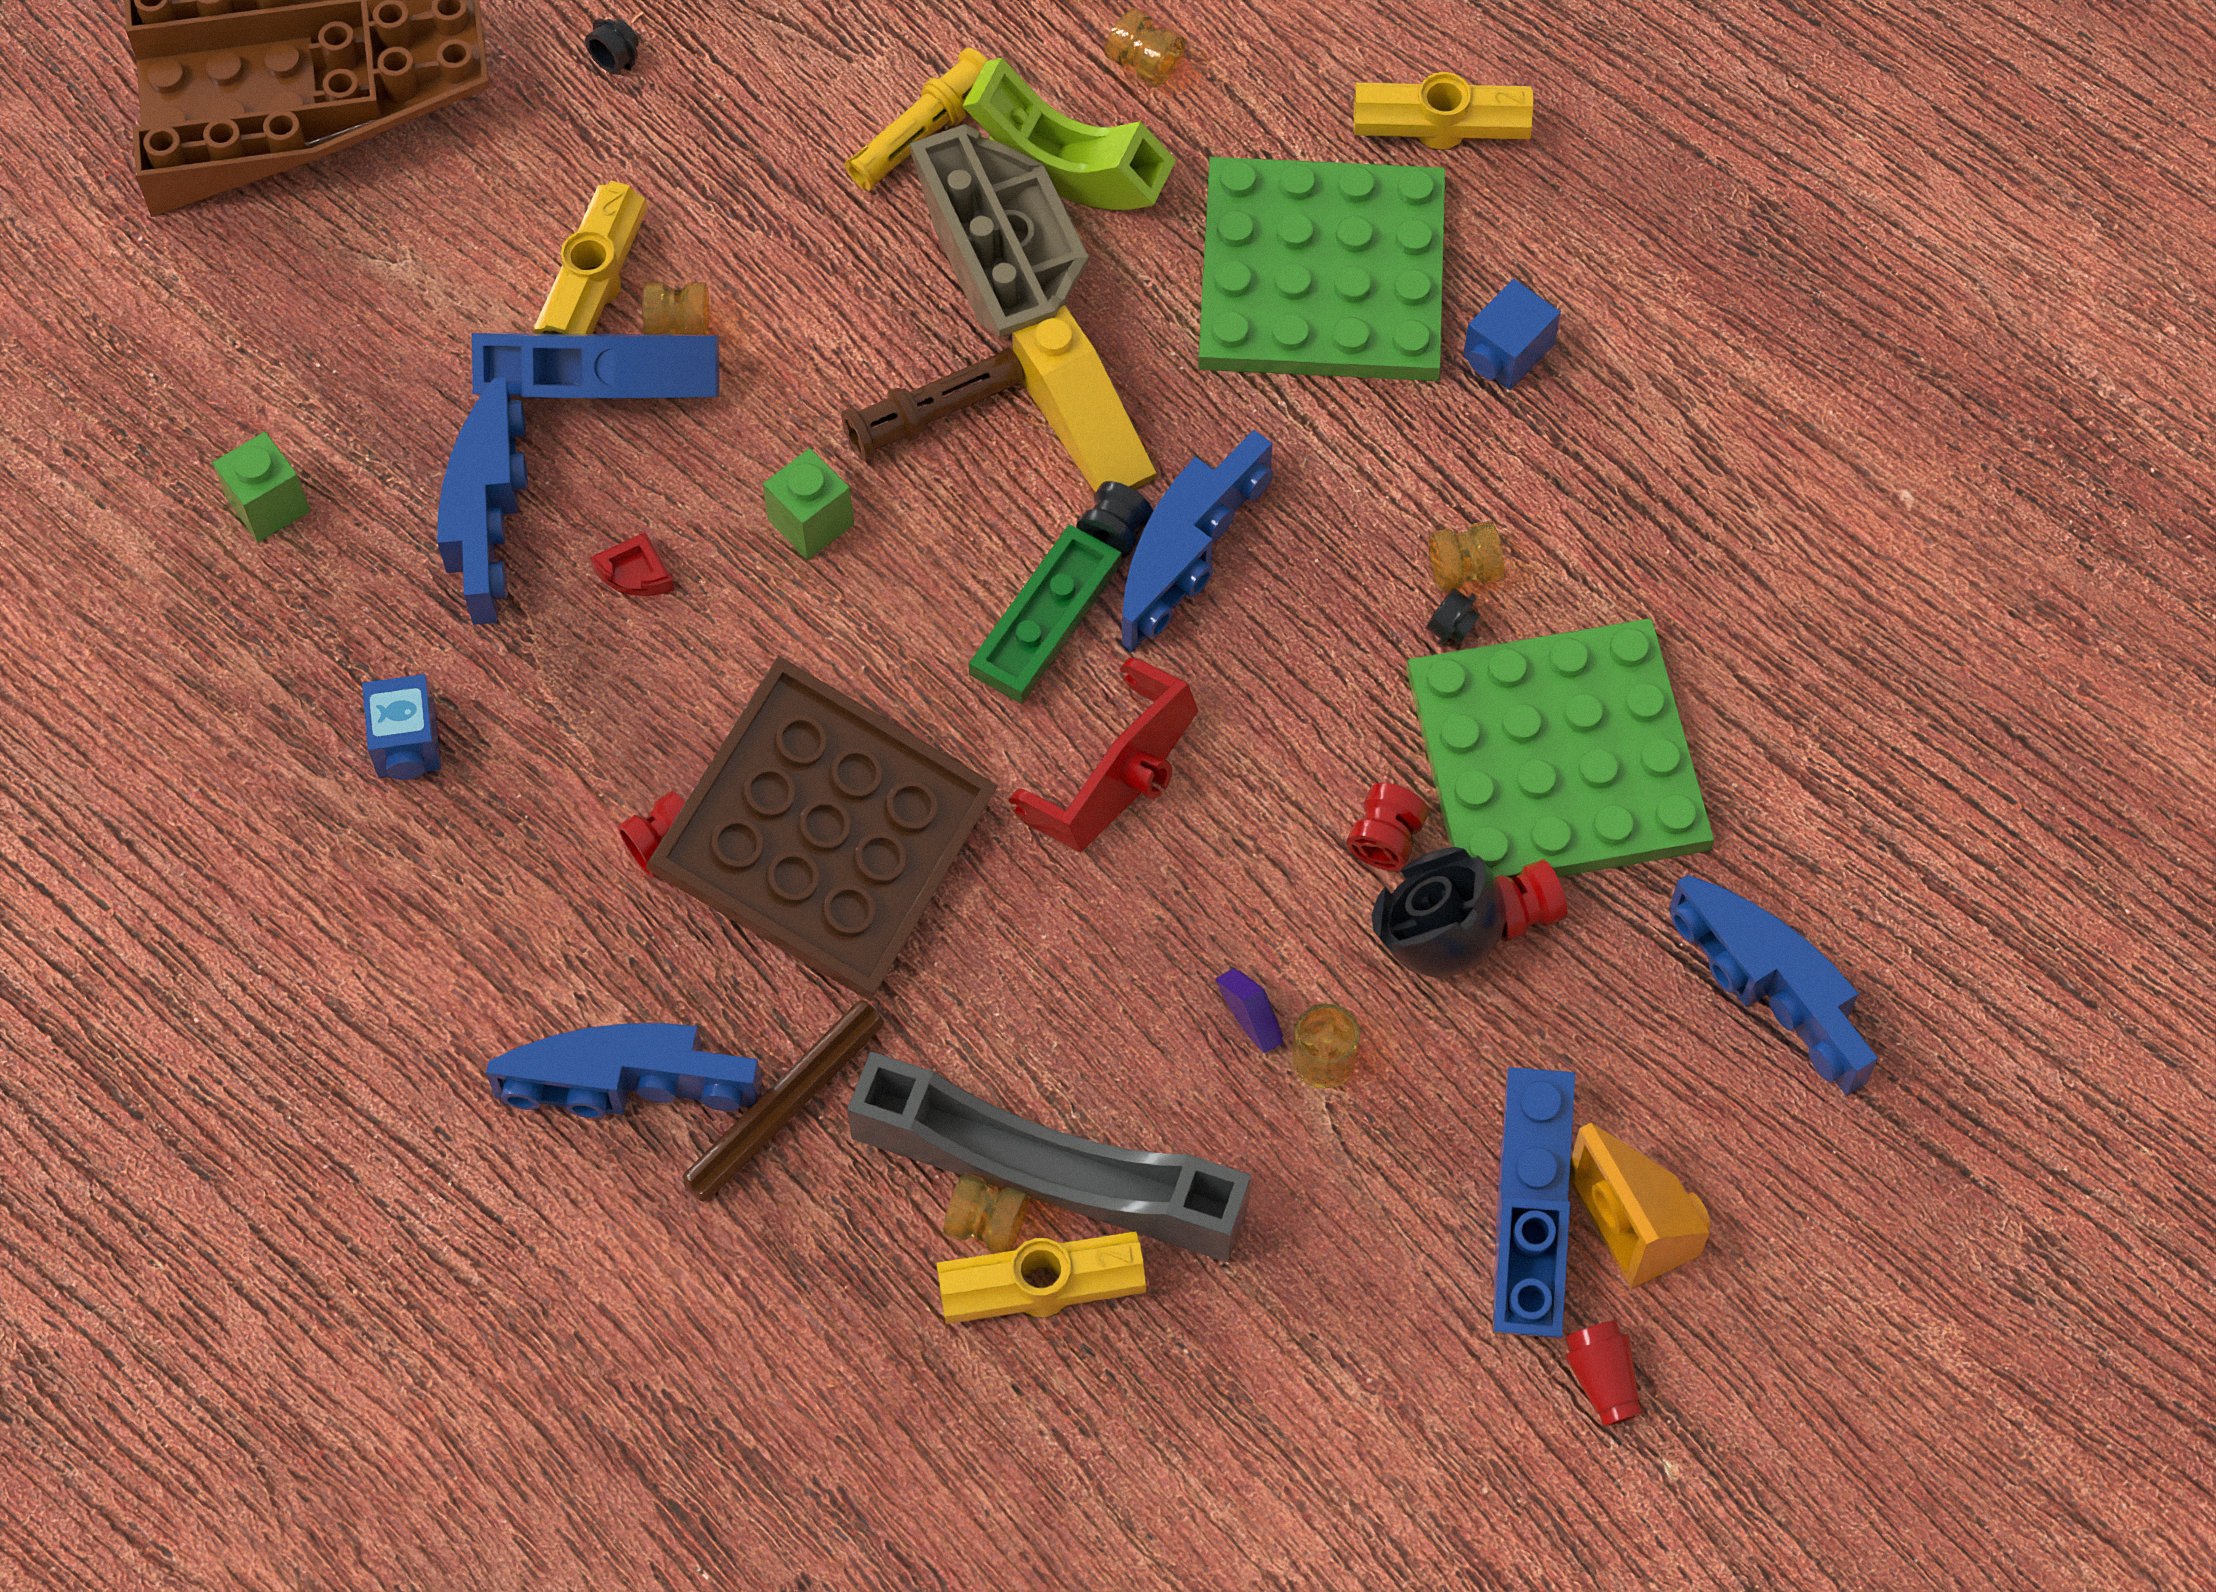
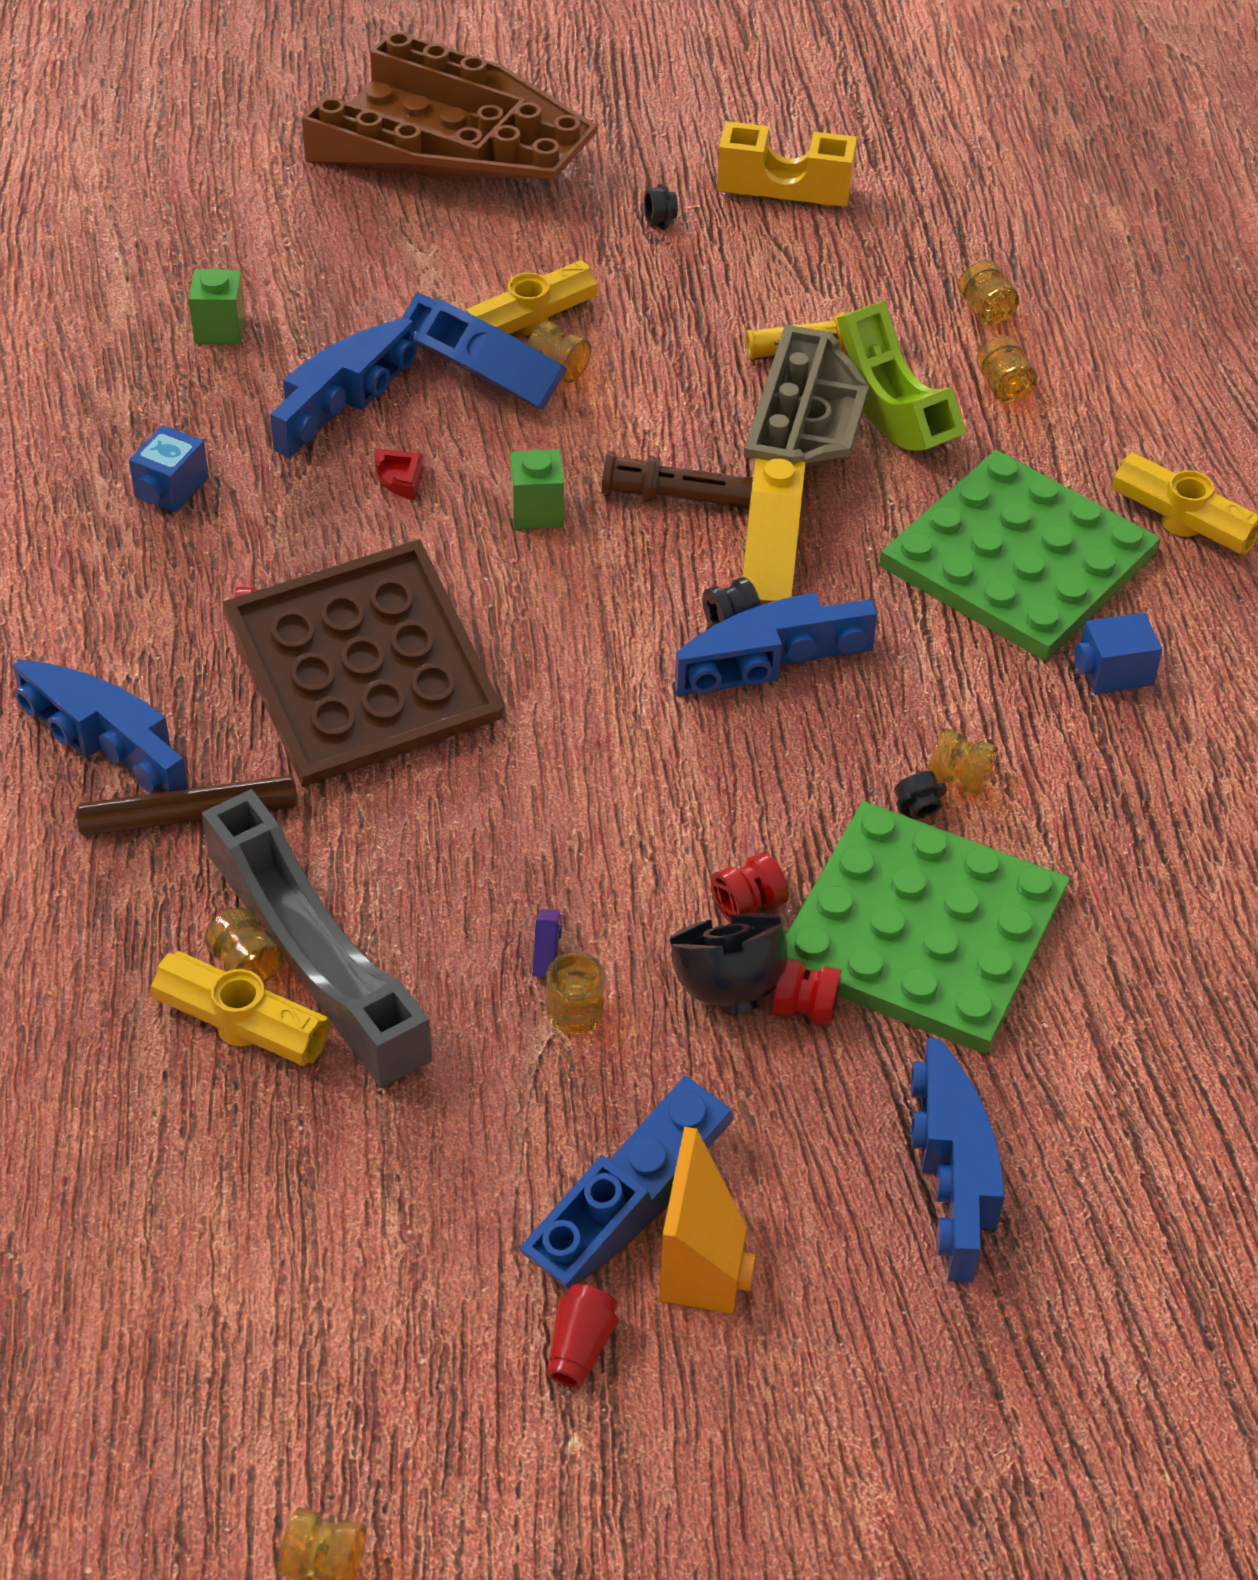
camera: 35 degrees right, 15 degrees down
(1045, 613) = (631, 634): green plate -> none
(1126, 768) = (598, 744): red piece -> none

